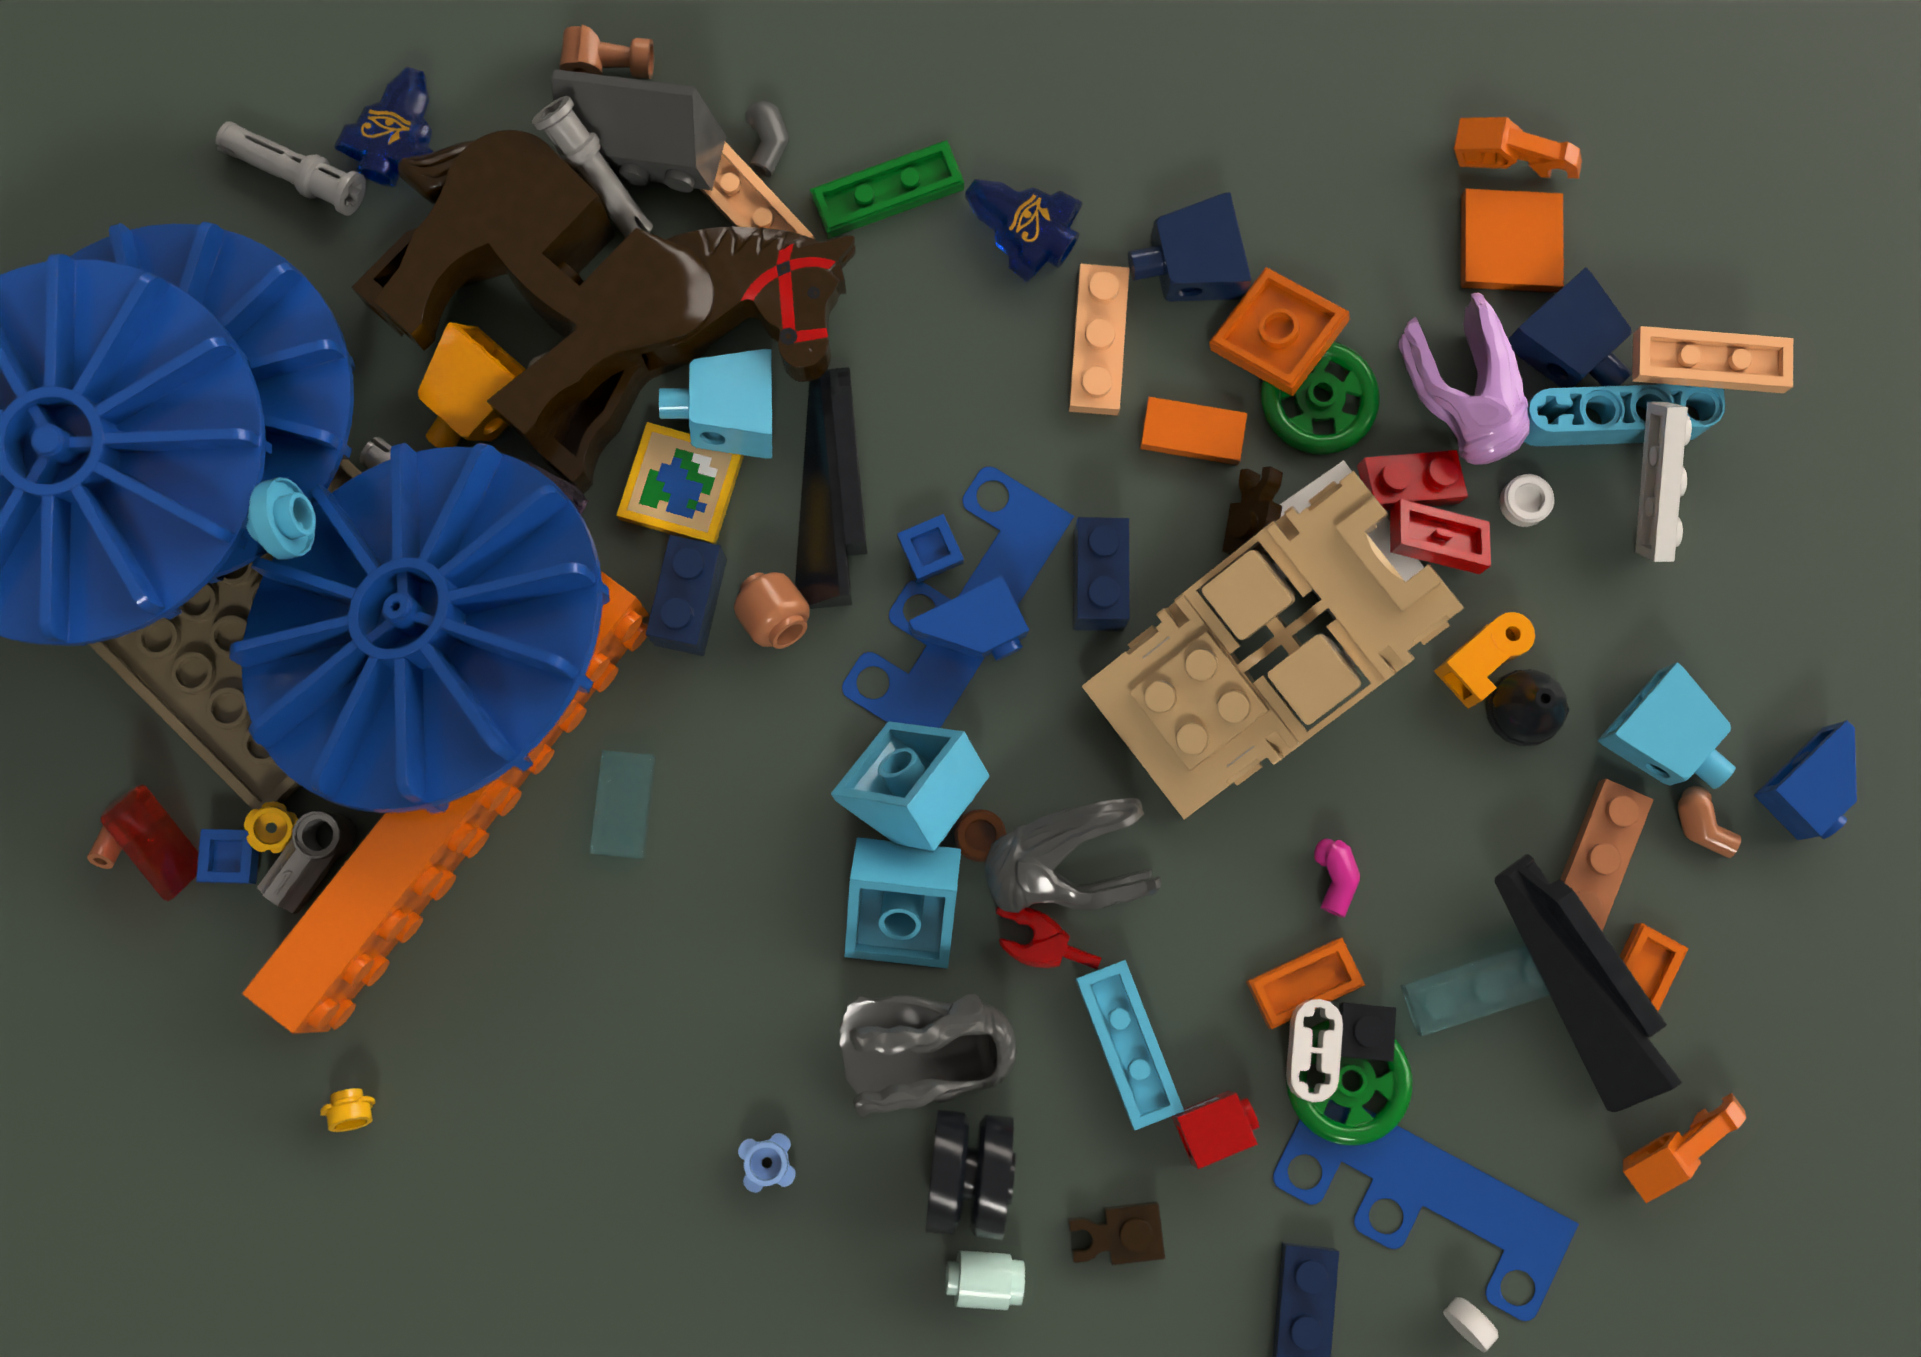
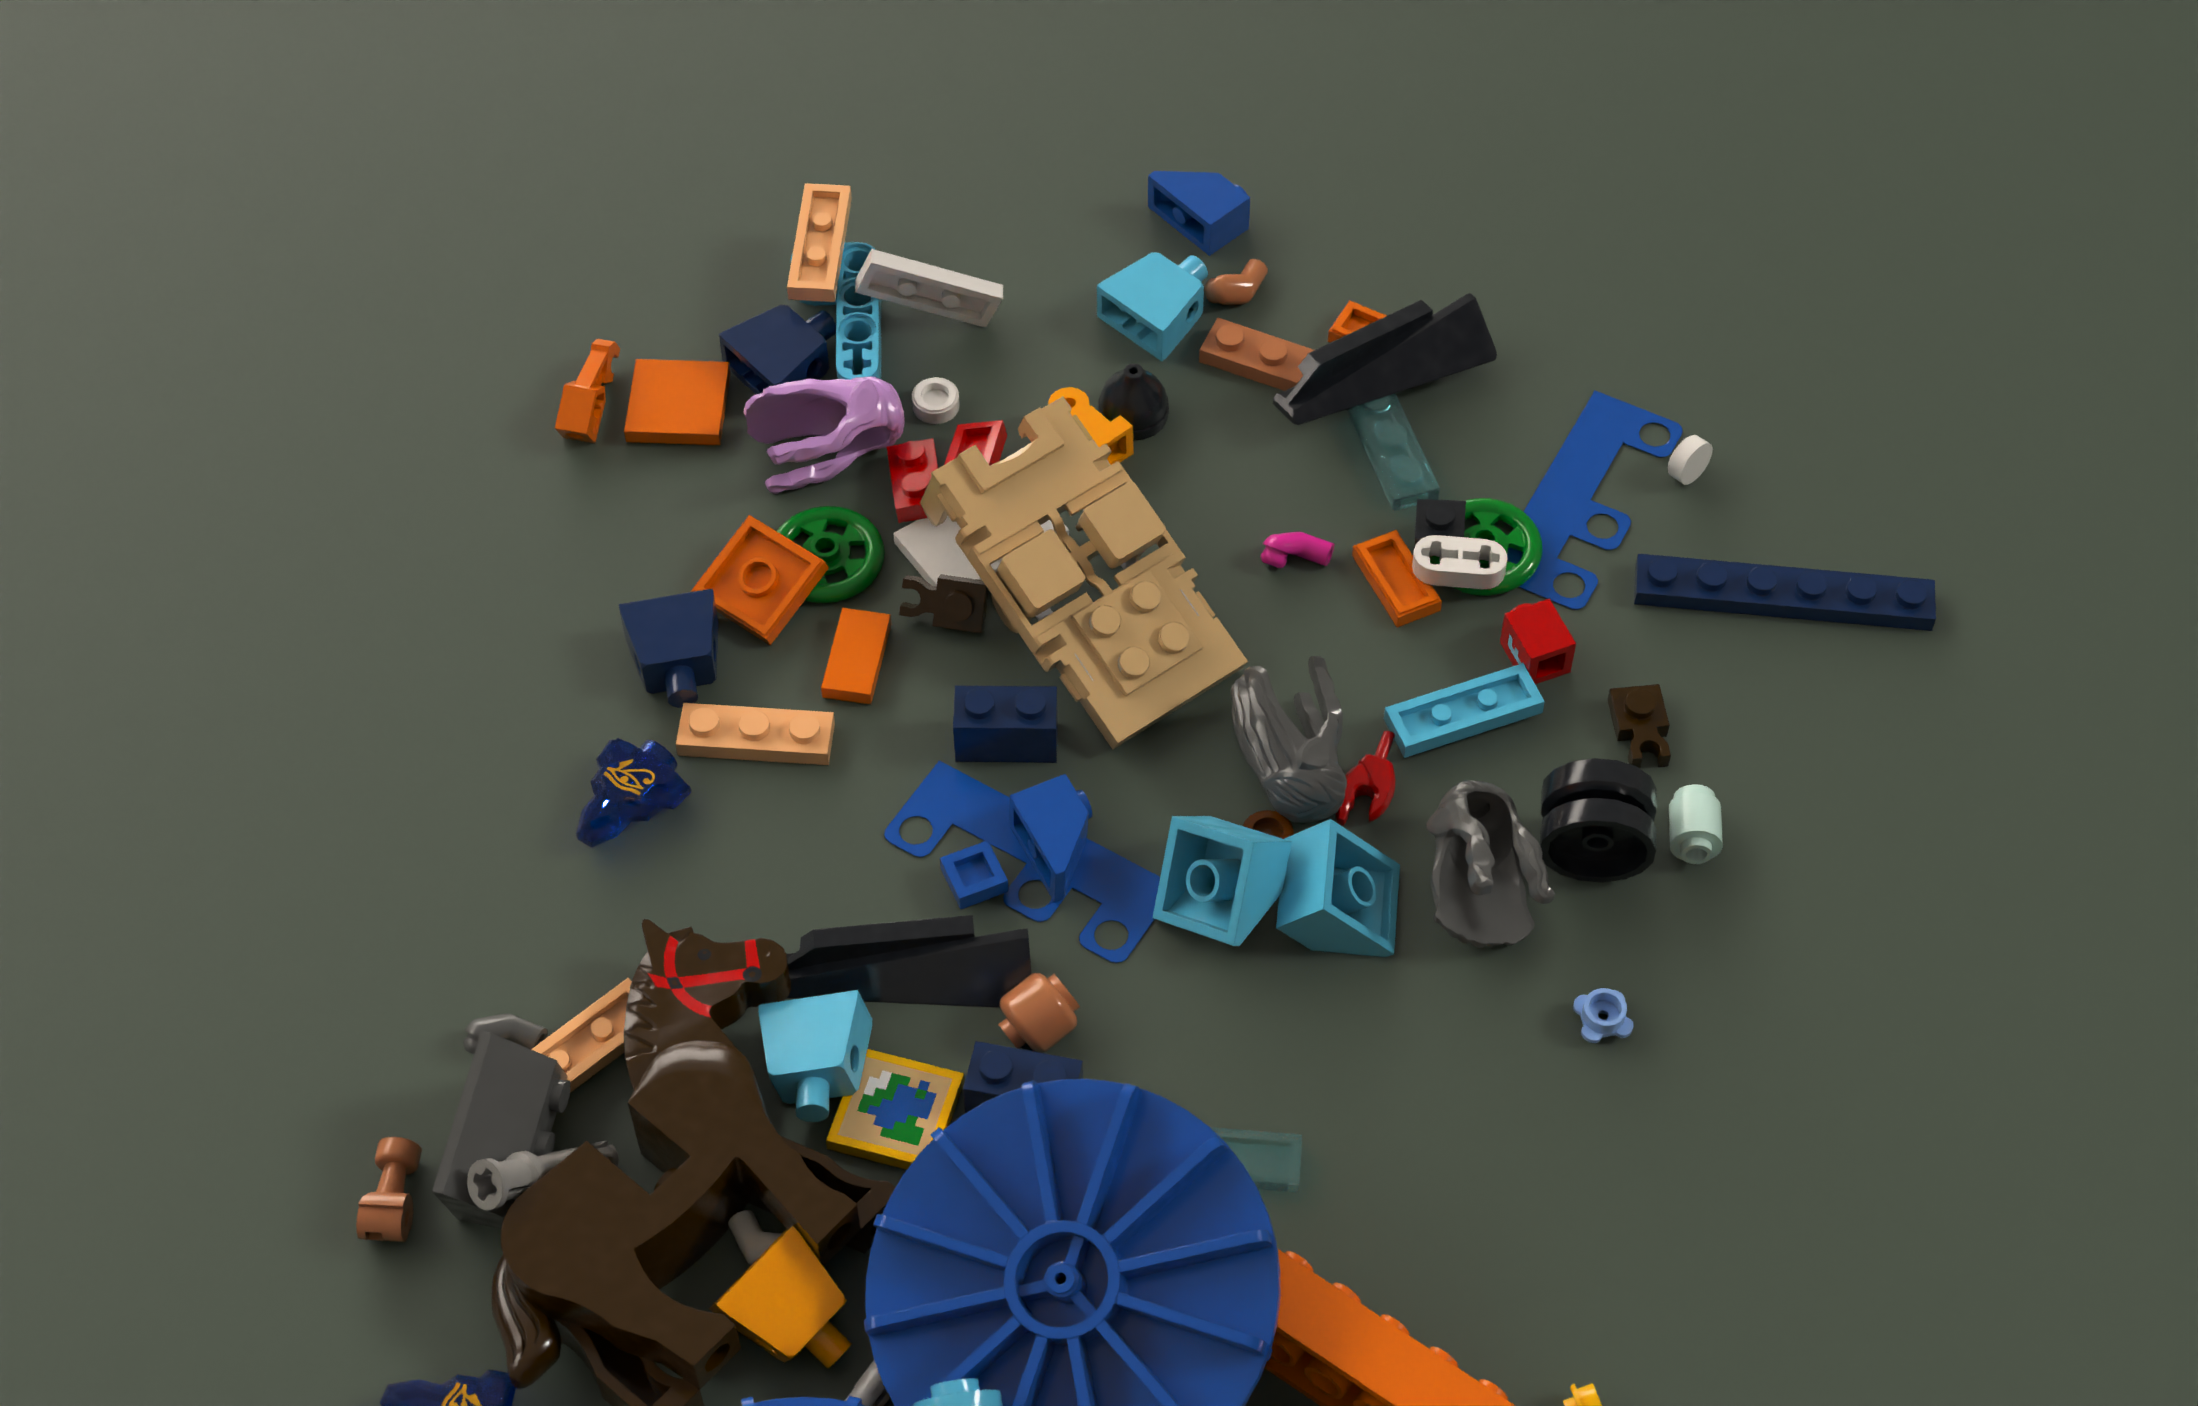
camera: 85 degrees left, 25 degrees down
(887, 189) = (574, 923): green tile -> none
(1674, 1157) = (1531, 314): orange piece -> none

